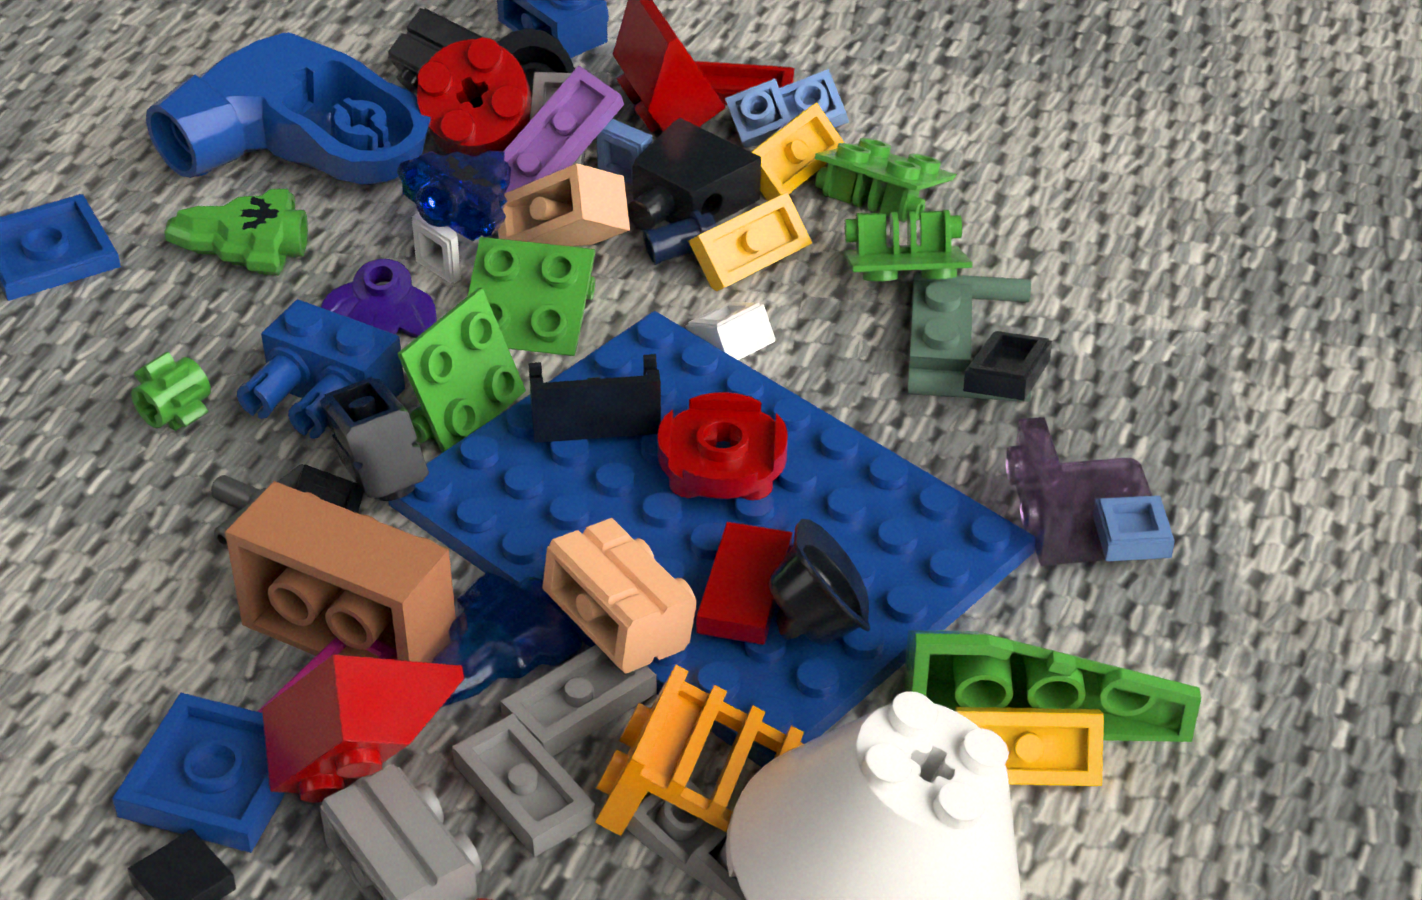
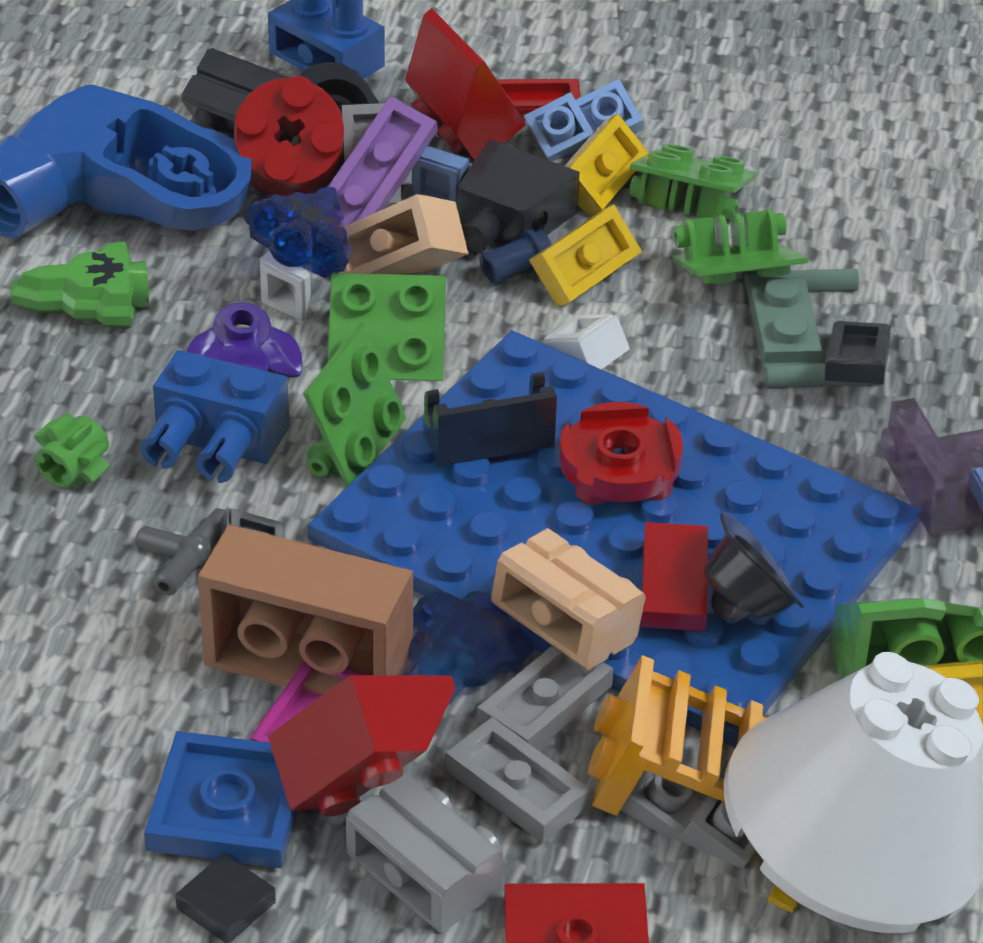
camera: 10 degrees left, 0 degrees up
(375, 439) = (292, 476): black brick -> none

